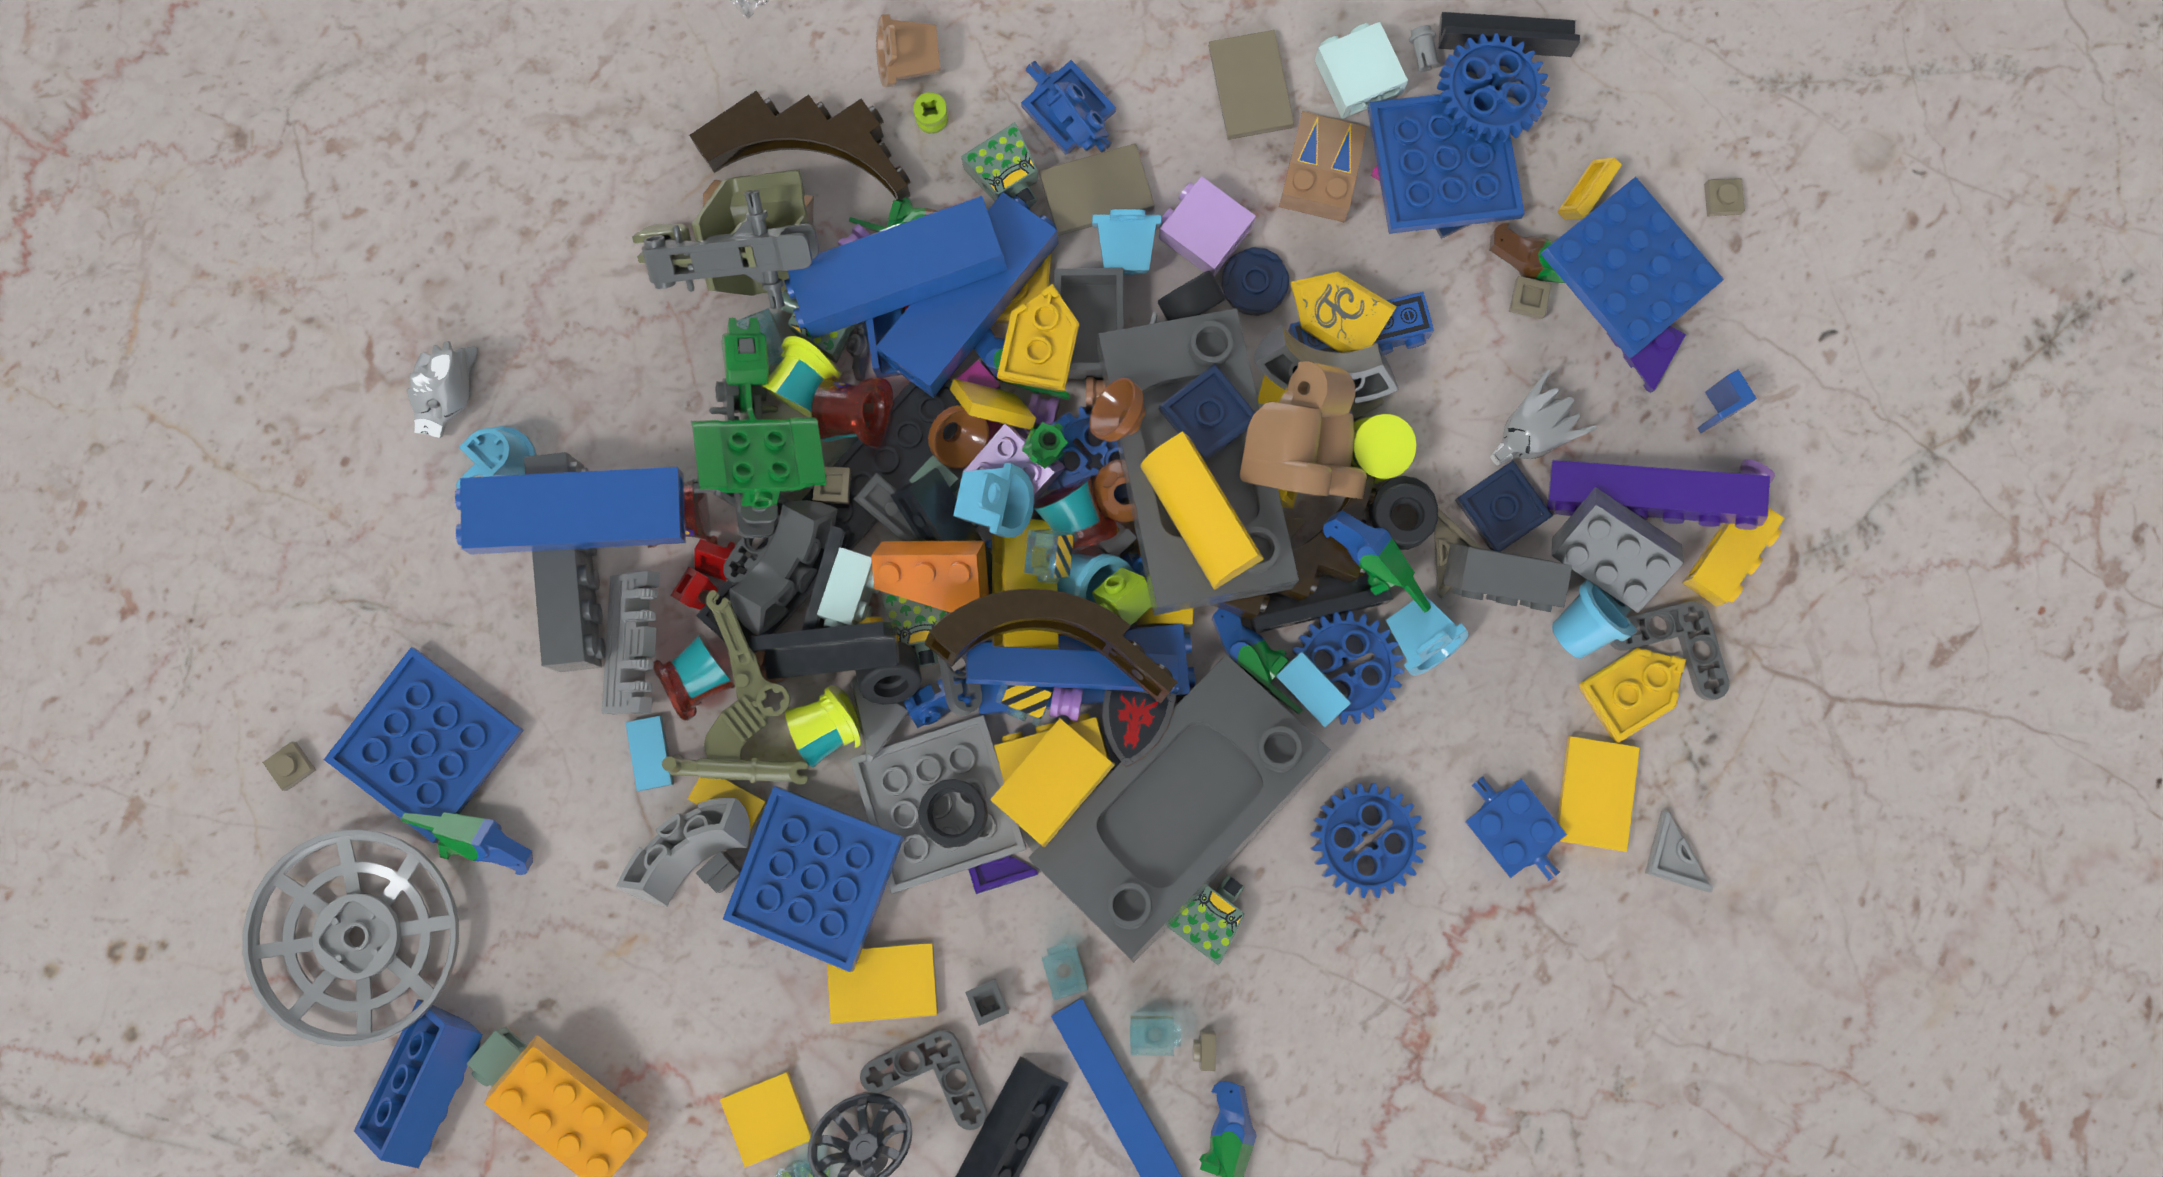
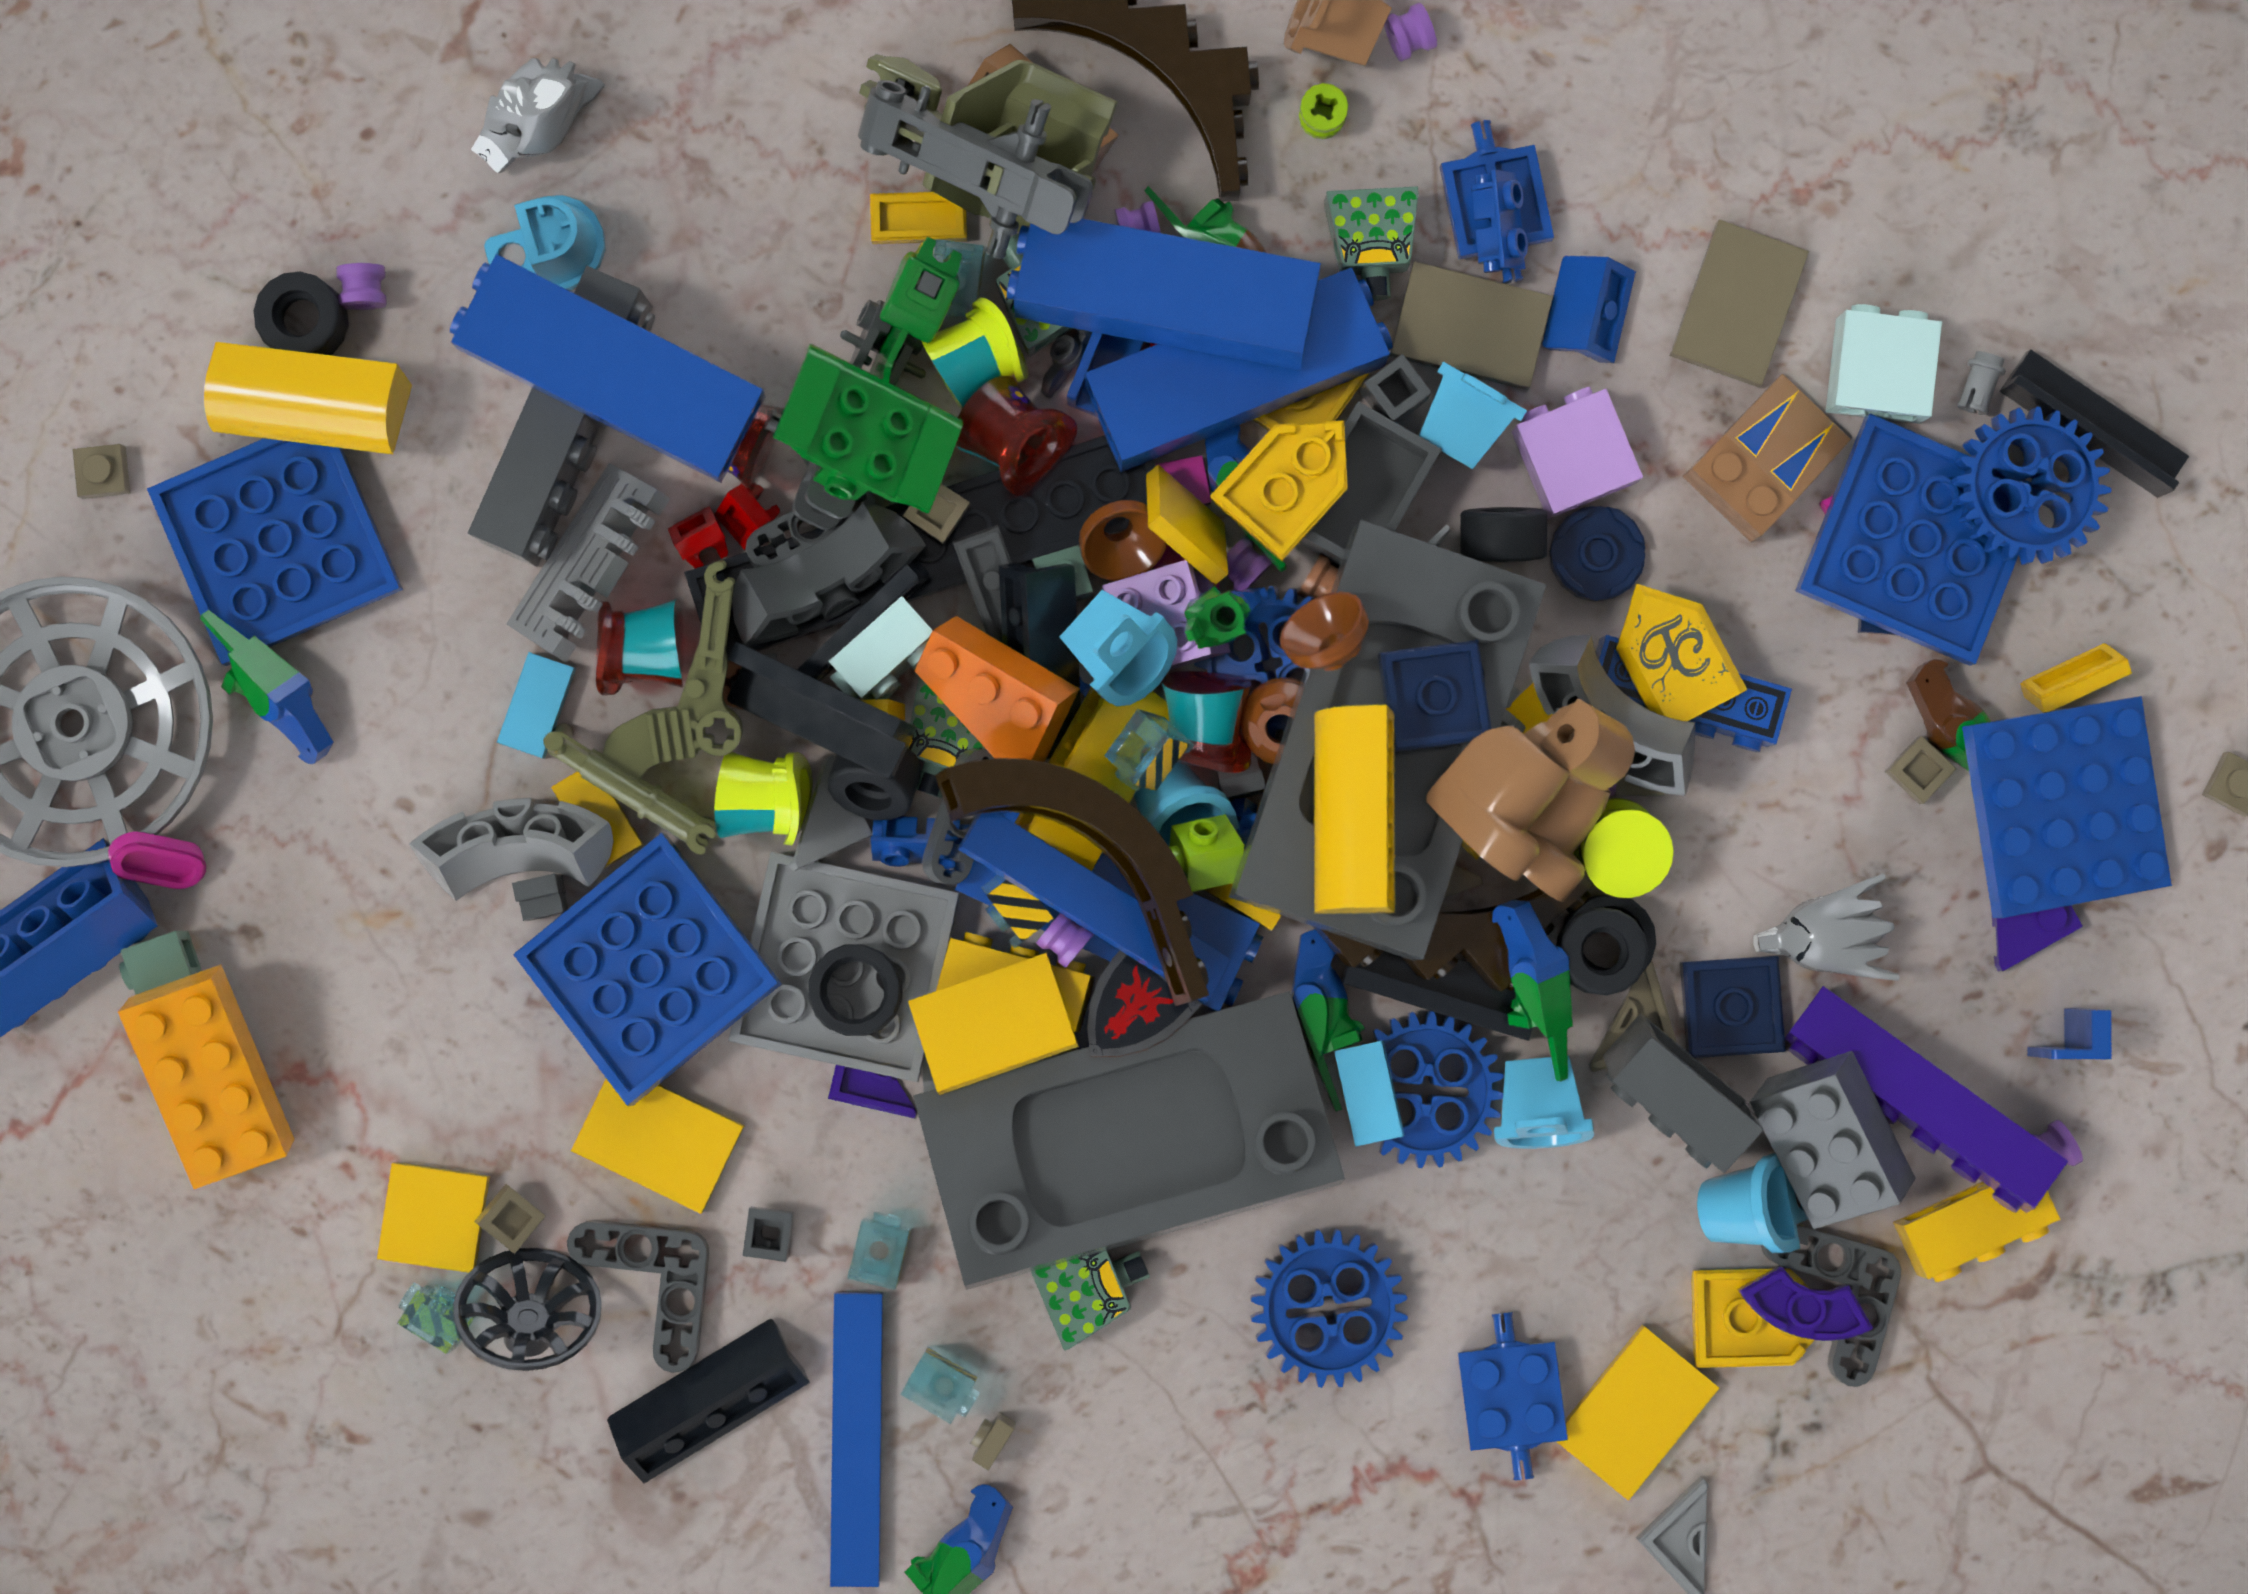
camera: 20 degrees right, 5 degrees up
(342, 593) = (284, 291): none -> black tyre
(391, 555) = (361, 286): none -> medium lavender wheel
(393, 643) = (305, 397): none -> yellow brick
(458, 992) = (157, 860): none -> dark pink tile
(711, 319) = (914, 217): none -> yellow tile
(816, 1090) = (510, 1218): none -> dark tan plate
(956, 36) = (1410, 32): none -> medium lavender wheel
(1073, 249) = (1395, 390): none -> dark grey brick
(1161, 137) = (1589, 307): none -> blue panel
(1663, 667) = (1805, 1311): none -> dark purple tile

